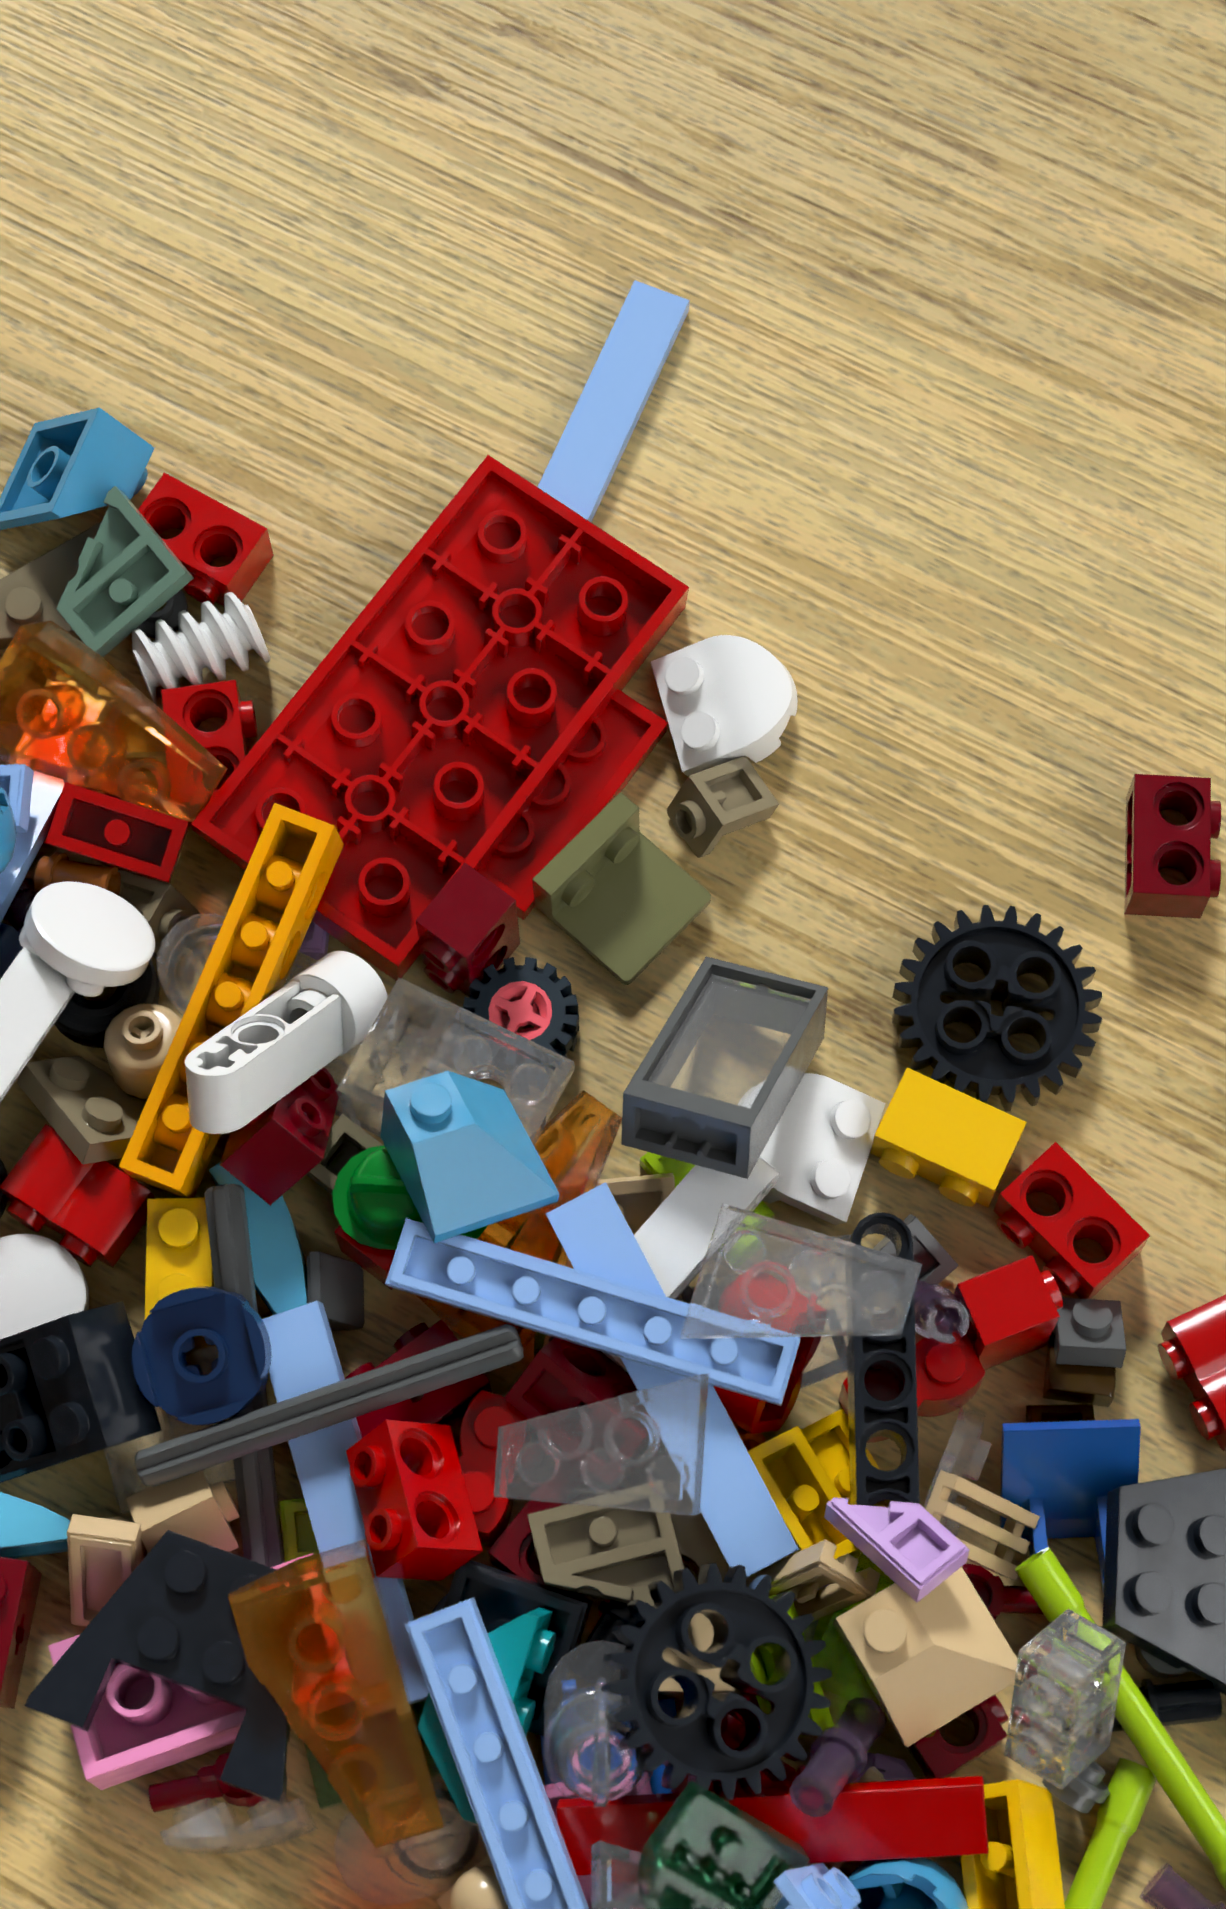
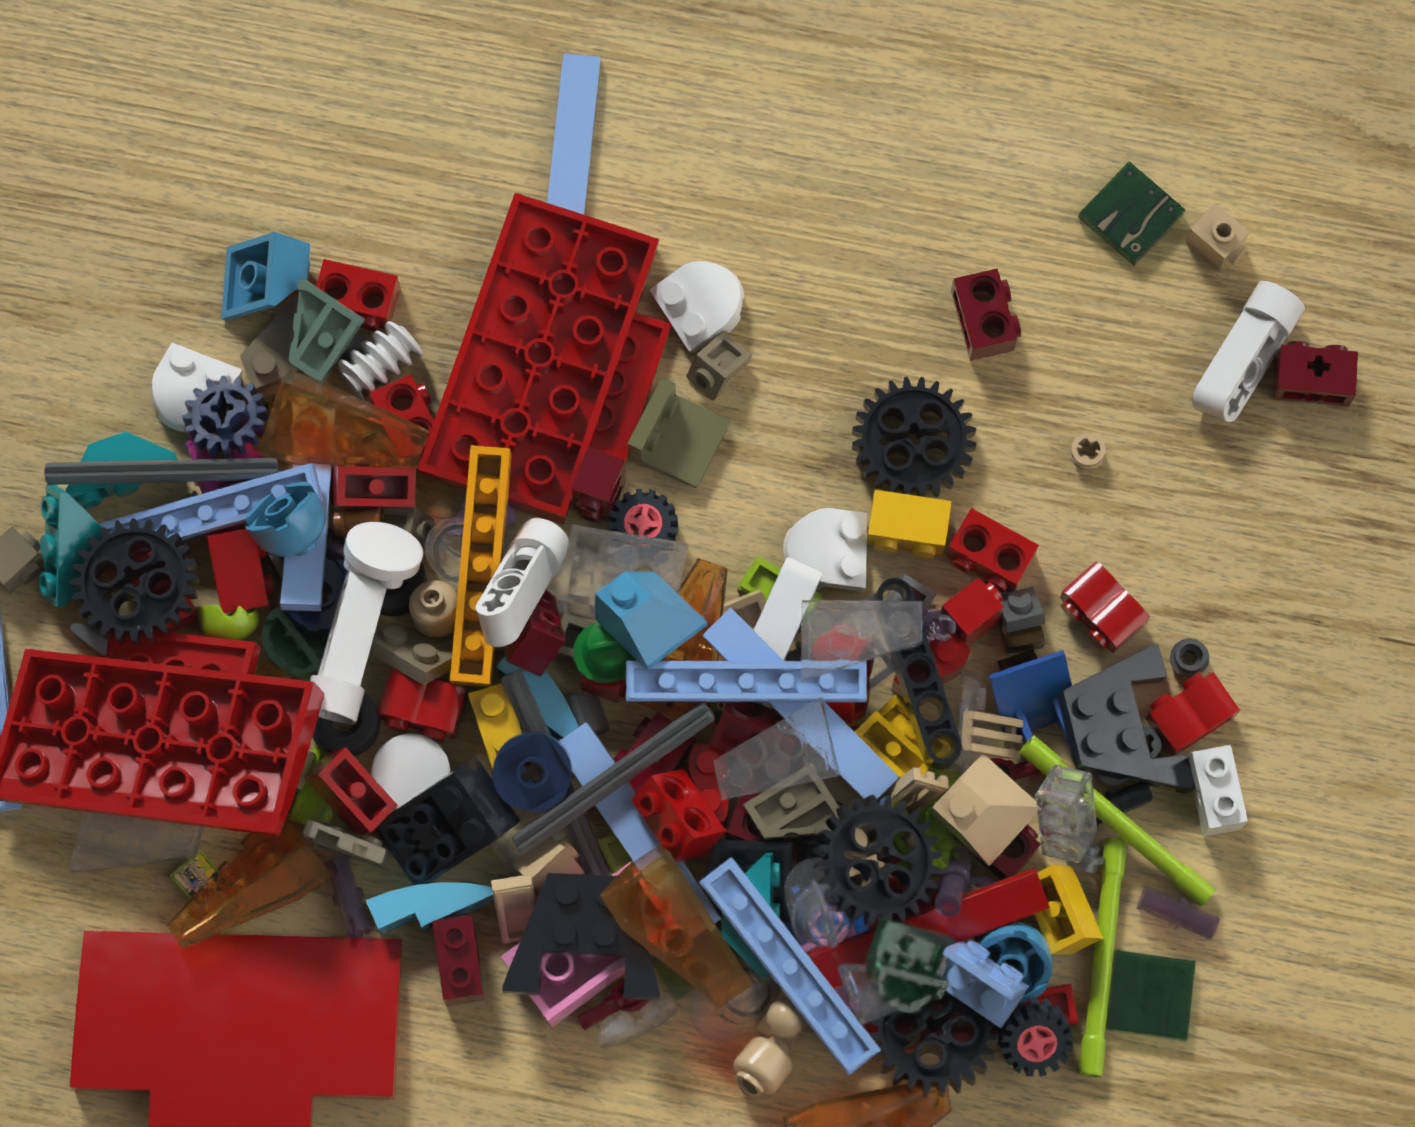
camera: 20 degrees left, 5 degrees up
(724, 1067) = (773, 520): window -> none
(901, 1542) = (955, 755): lavender tile -> none

